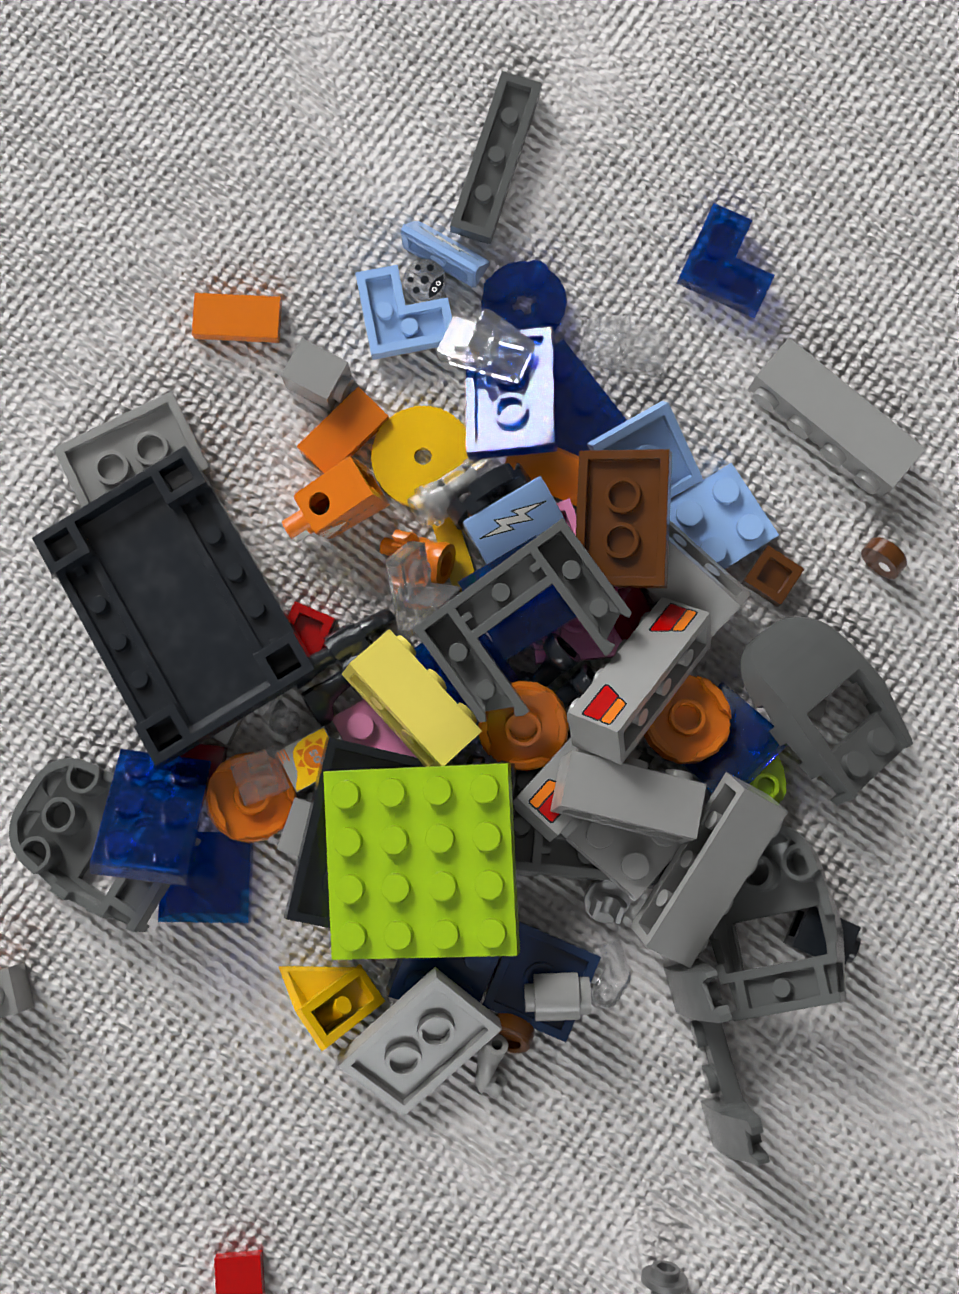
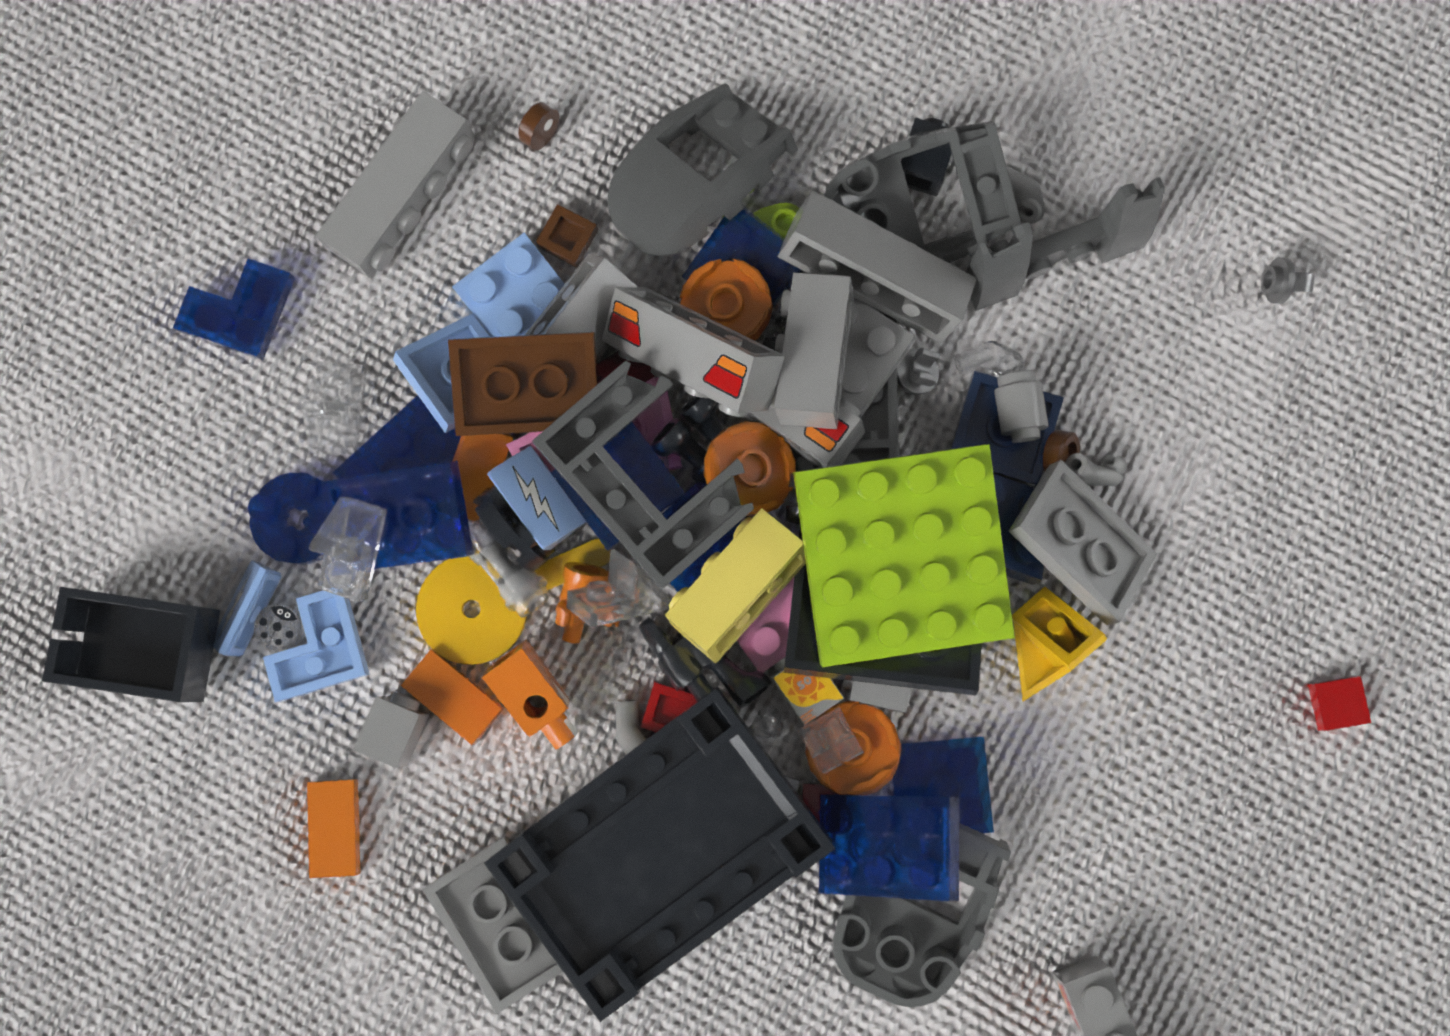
camera: 85 degrees left, 0 degrees up
(298, 590) = (627, 725): none -> light grey arm
(419, 150) = (132, 646): none -> black piece
(496, 157) = (134, 563): dark grey plate -> none
(775, 1031) = (1027, 197): none -> light grey arm

